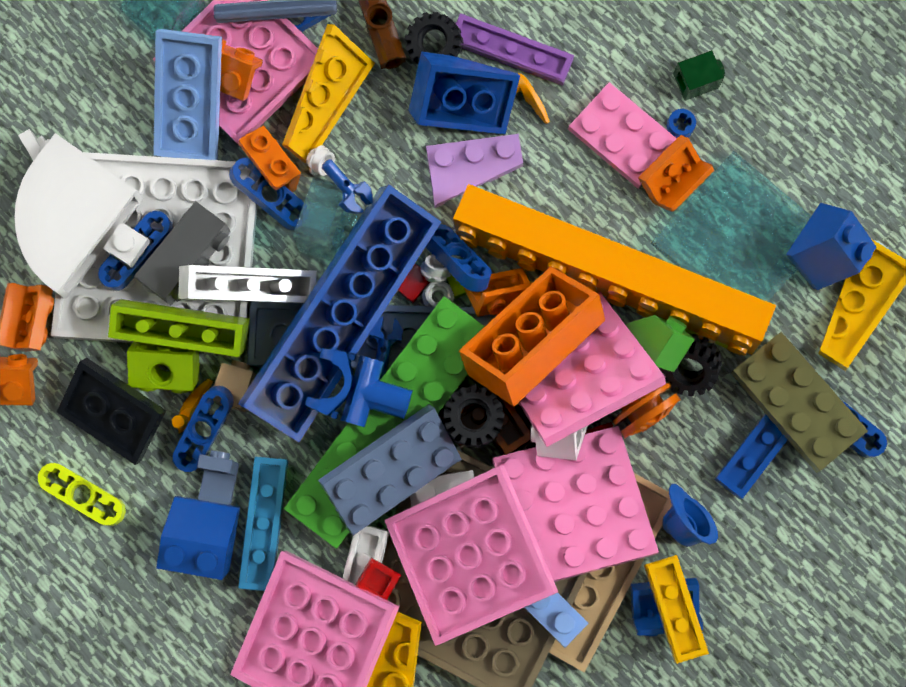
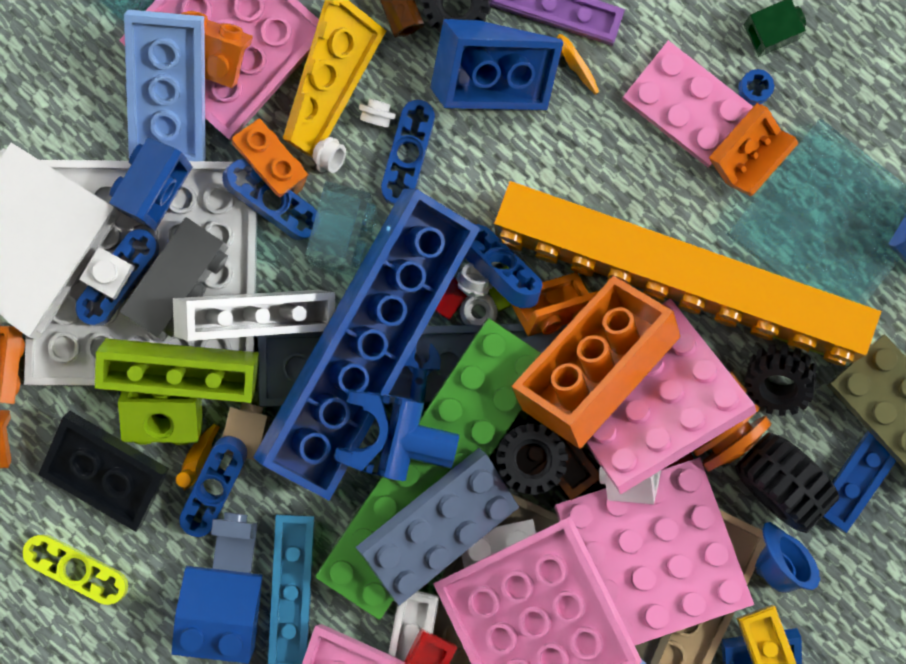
camera: 10 degrees left, 5 degrees up
(169, 173) = (150, 182): none -> blue slope
(348, 189) = (368, 195): blue bar -> none
(362, 128) = (376, 113): none -> white plate
(386, 139) = (405, 123): none -> blue beam
(472, 163) = (504, 149): lavender wing -> none
(662, 340) = (747, 356): bright green slope -> none
(692, 450) = (787, 482): none -> black tyre

